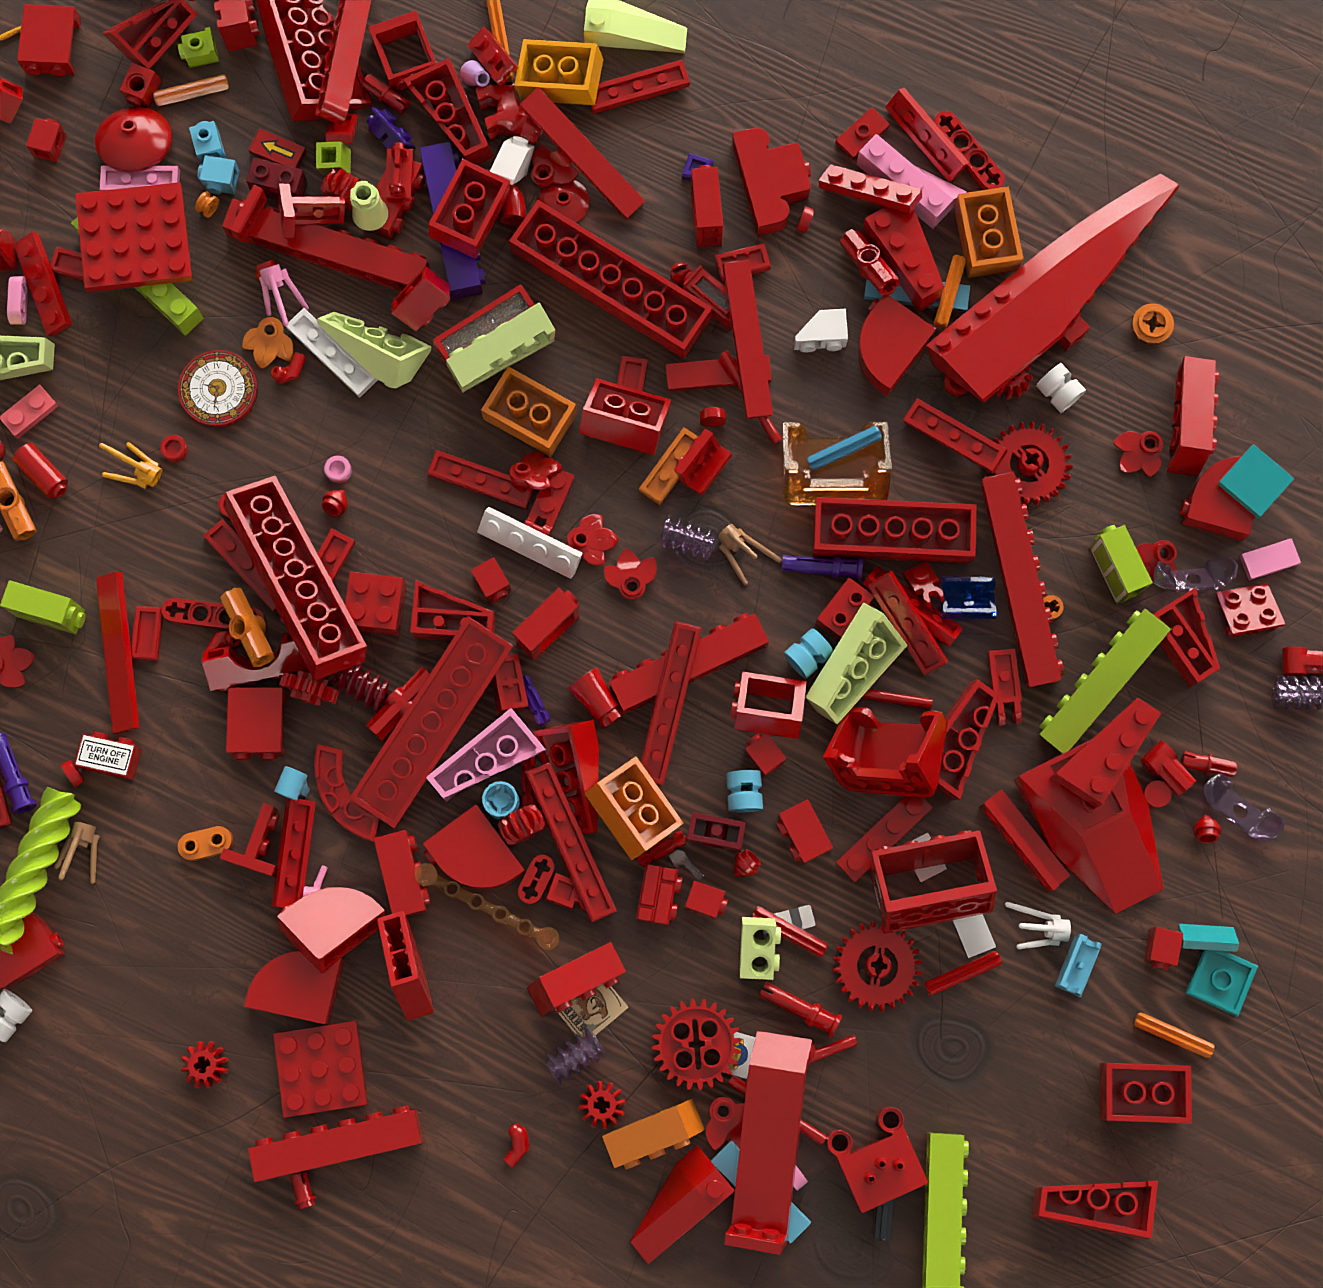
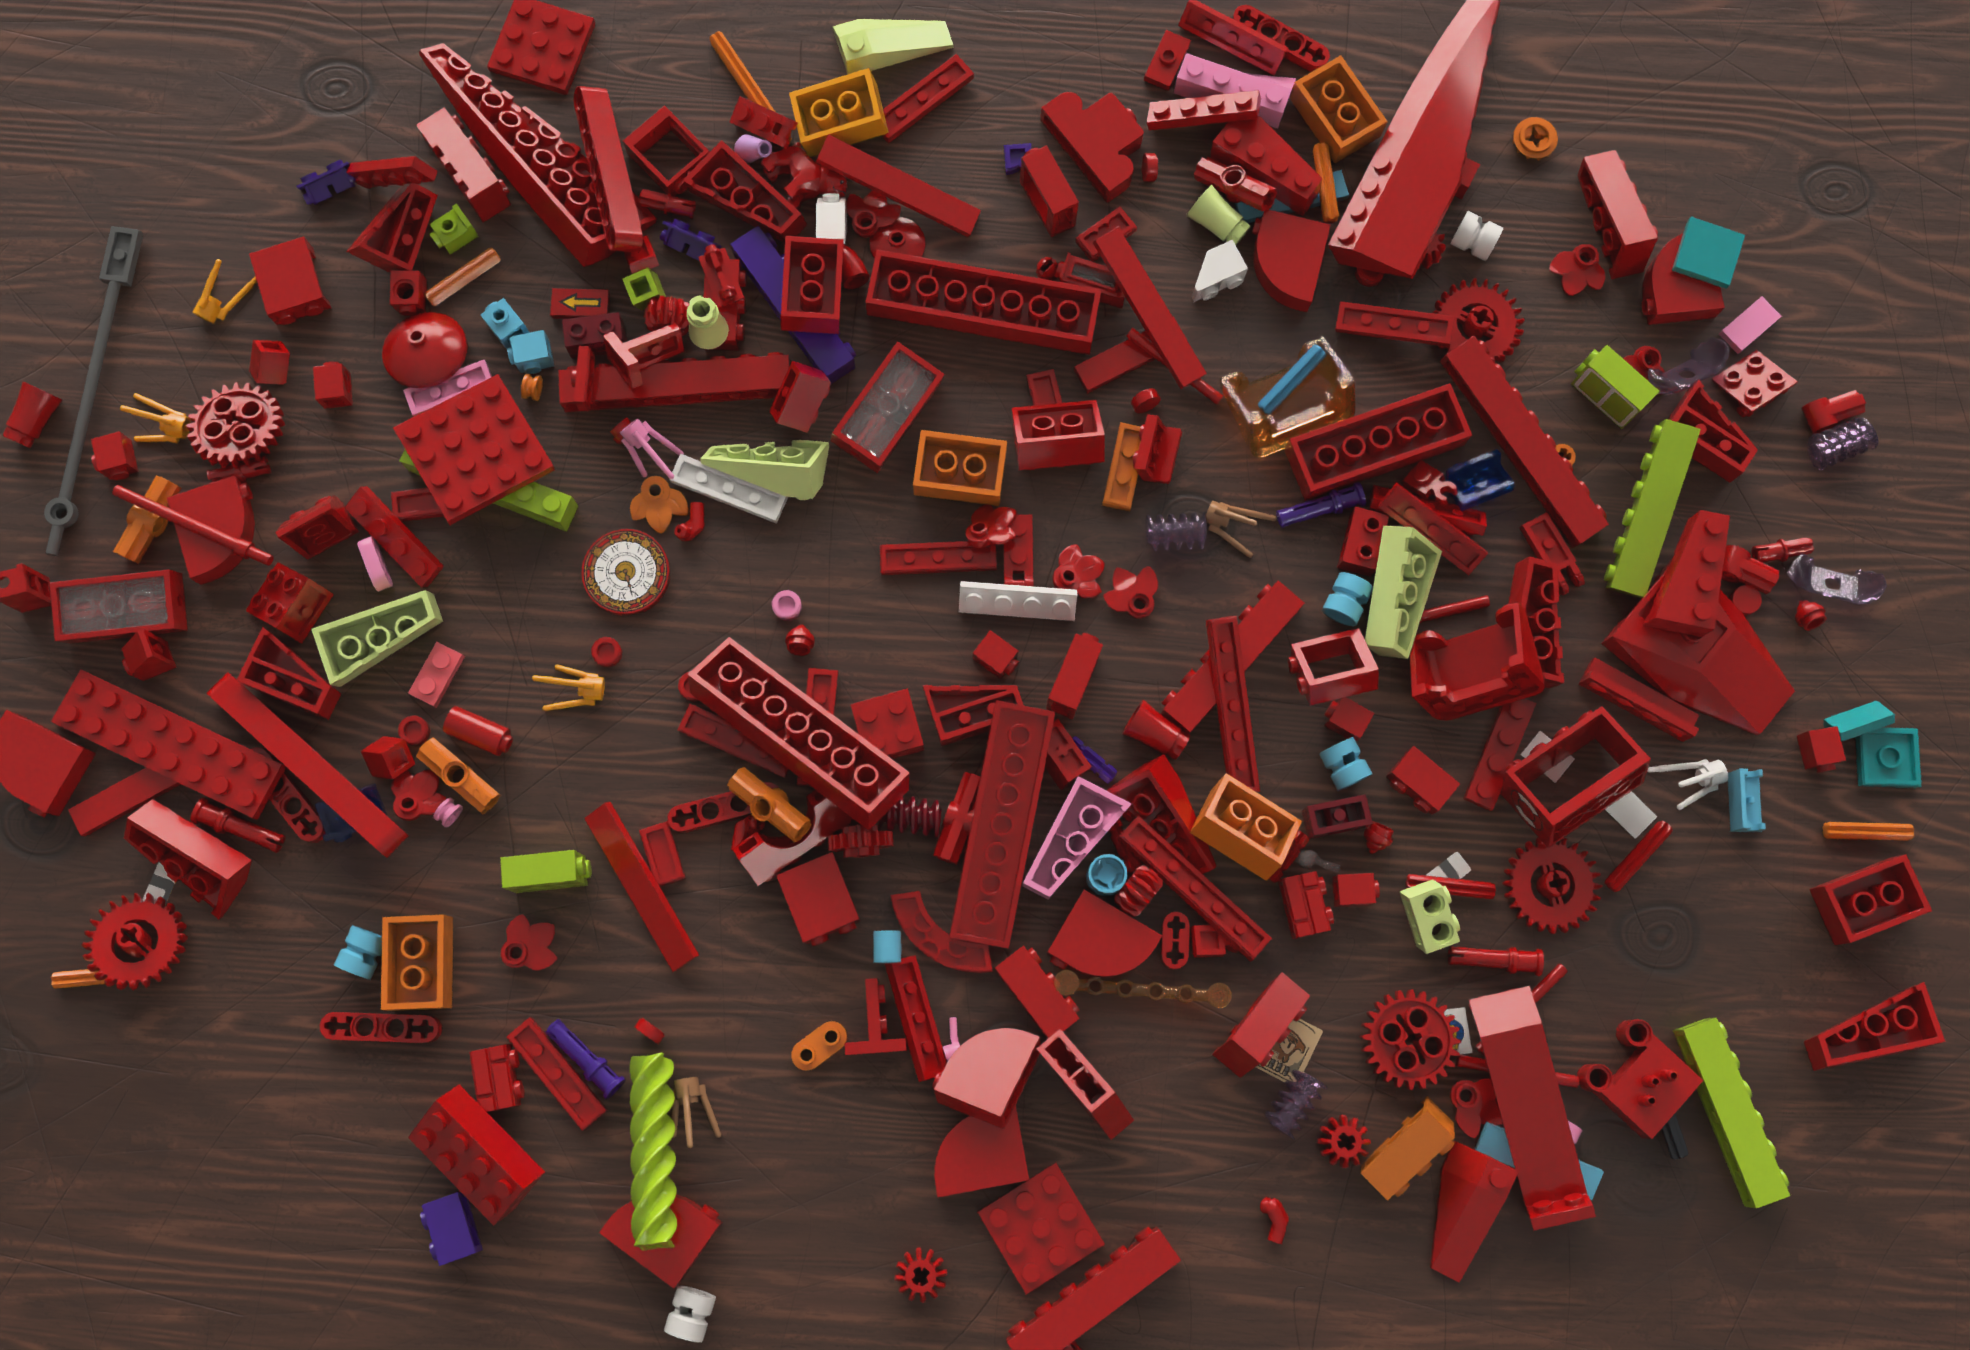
camera: 25 degrees left, 0 degrees up
(108, 756) = (679, 997): brick -> none
(501, 347) = (909, 412): yellowish green wedge -> none
(844, 285) = (1218, 216): none -> yellowish green plant

